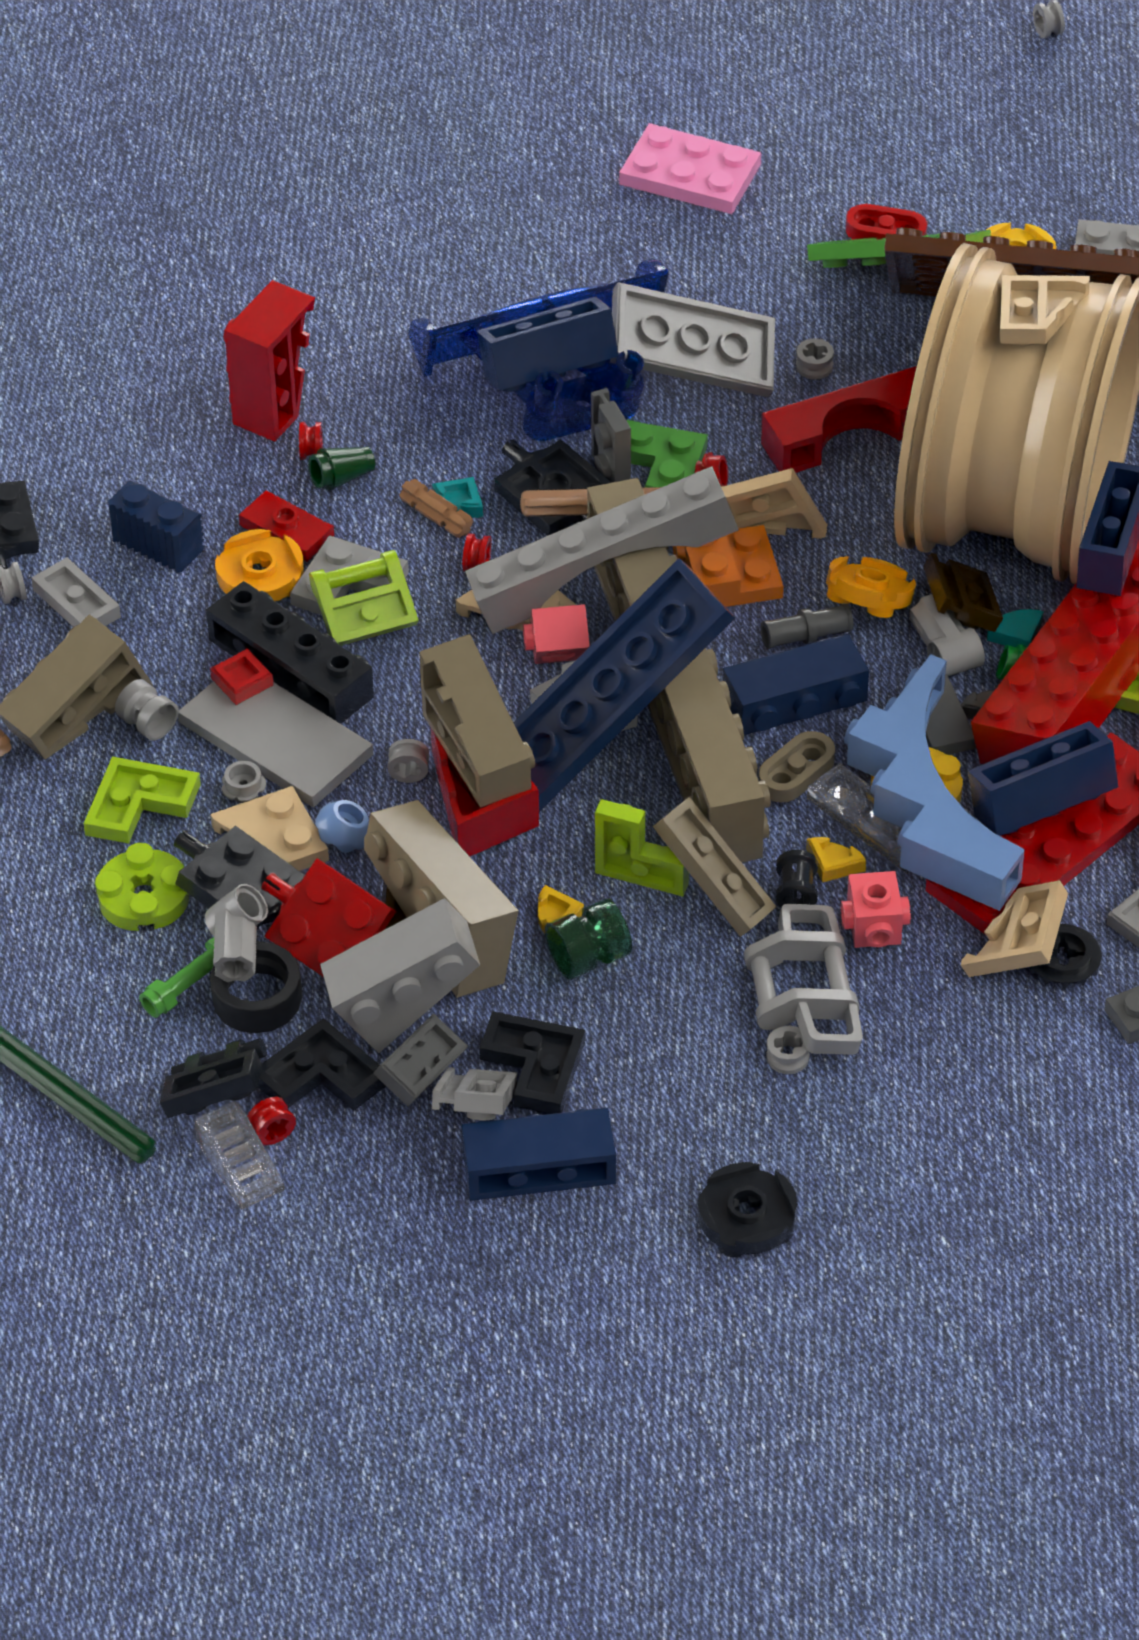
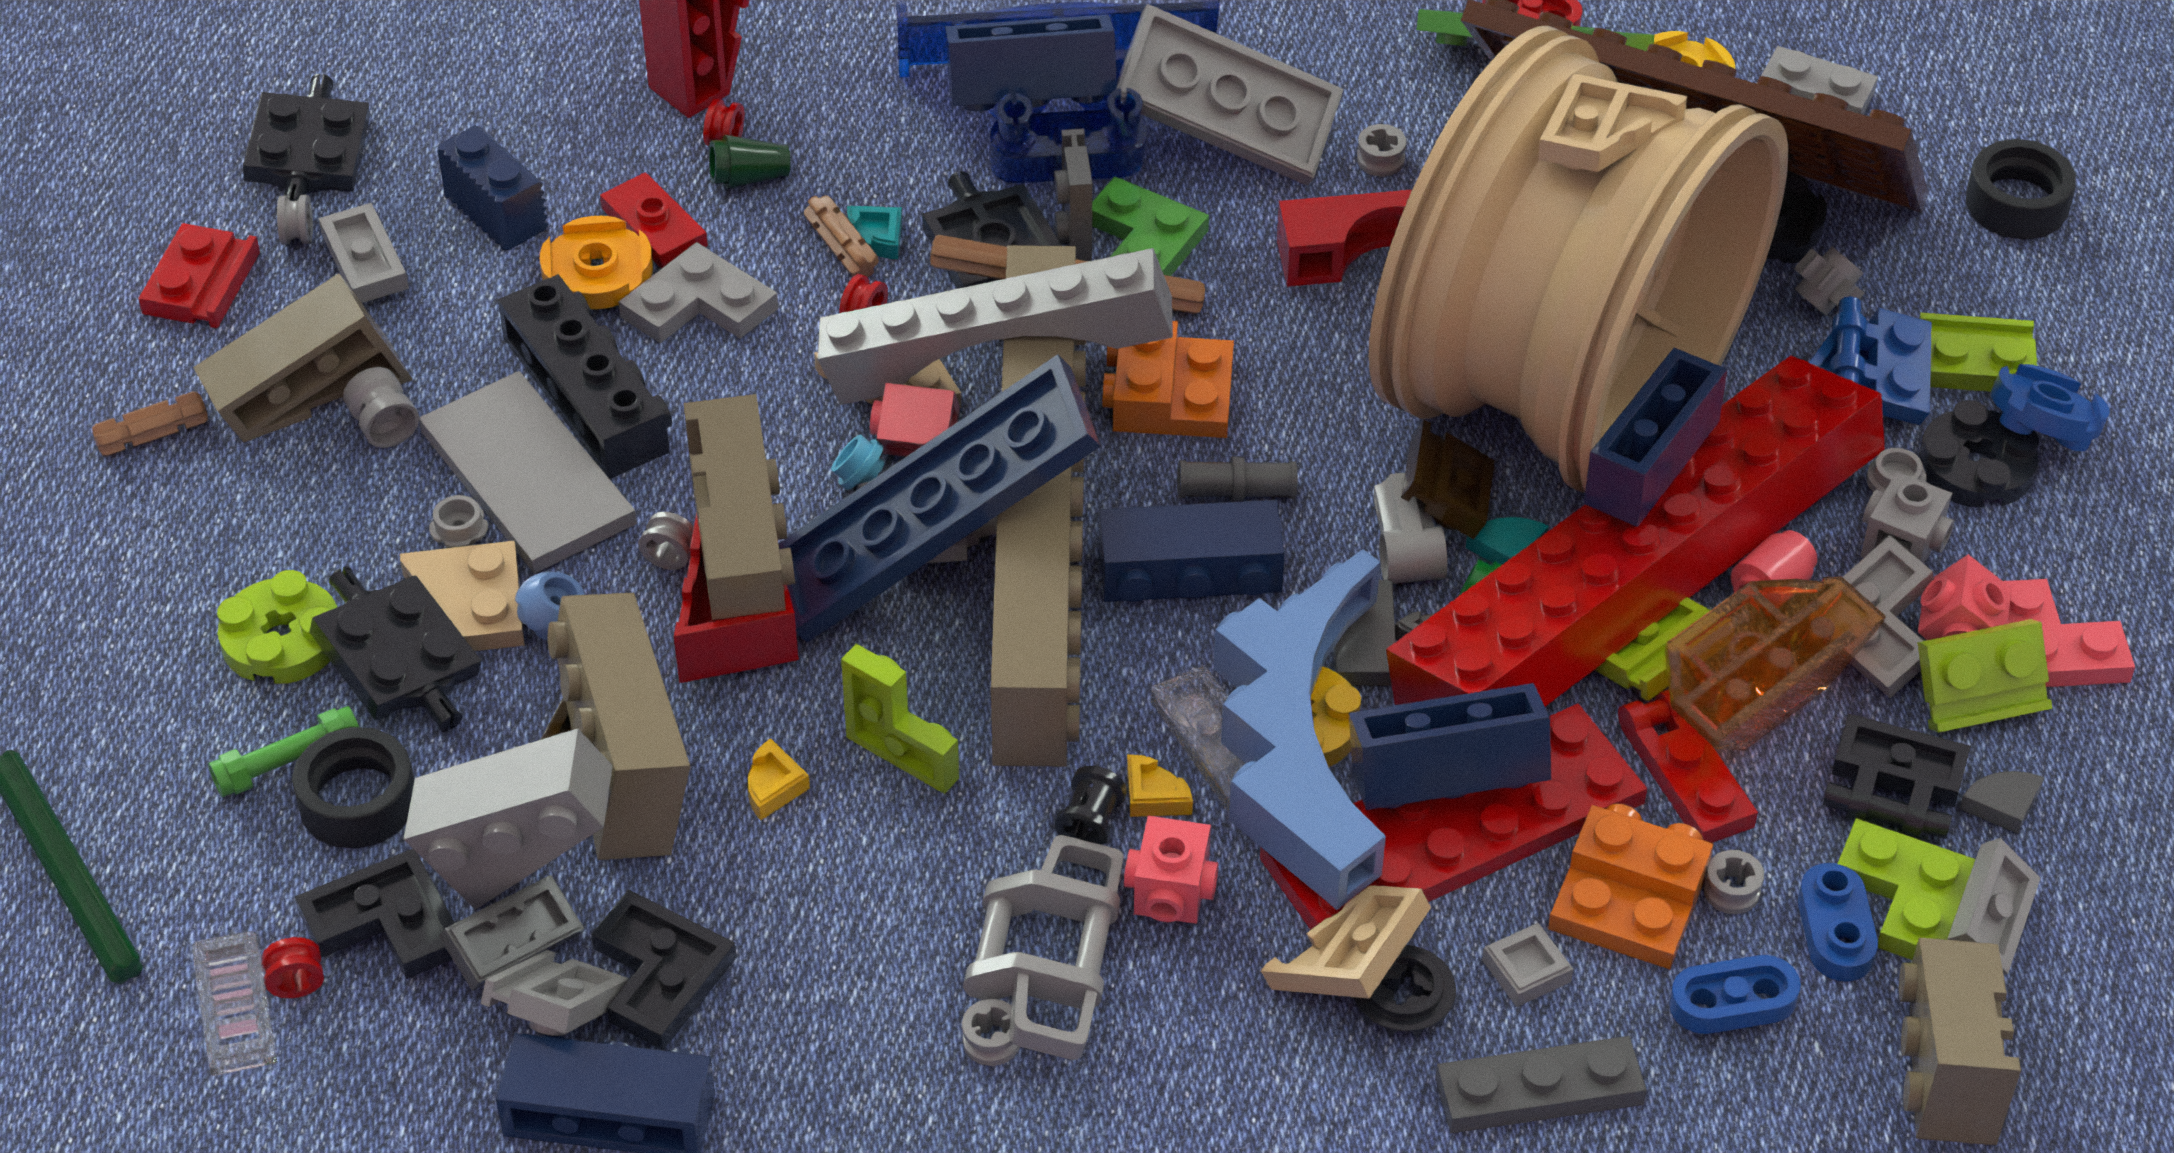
camera: 15 degrees right, 0 degrees up
(135, 787) = (317, 501): lime plate -> none
(213, 1078) = (238, 894): black plate -> none
(234, 929) = (341, 712): light grey piece -> none
(241, 676) = (510, 391): red tile -> none
(324, 915) = (466, 709): red plate -> none
(368, 611) = (699, 344): lime plate -> none
(524, 673) = (858, 462): none -> medium azure plate
(582, 941) = (789, 822): clear green wheel -> none
(714, 866) = (981, 764): dark tan plate -> none
(719, 465) = (1196, 260): red plate -> none
(775, 502) = (1251, 313): tan wing -> none
(789, 769) = (1148, 657): dark tan plate -> none
(870, 584) = (1337, 447): light orange plate -> none

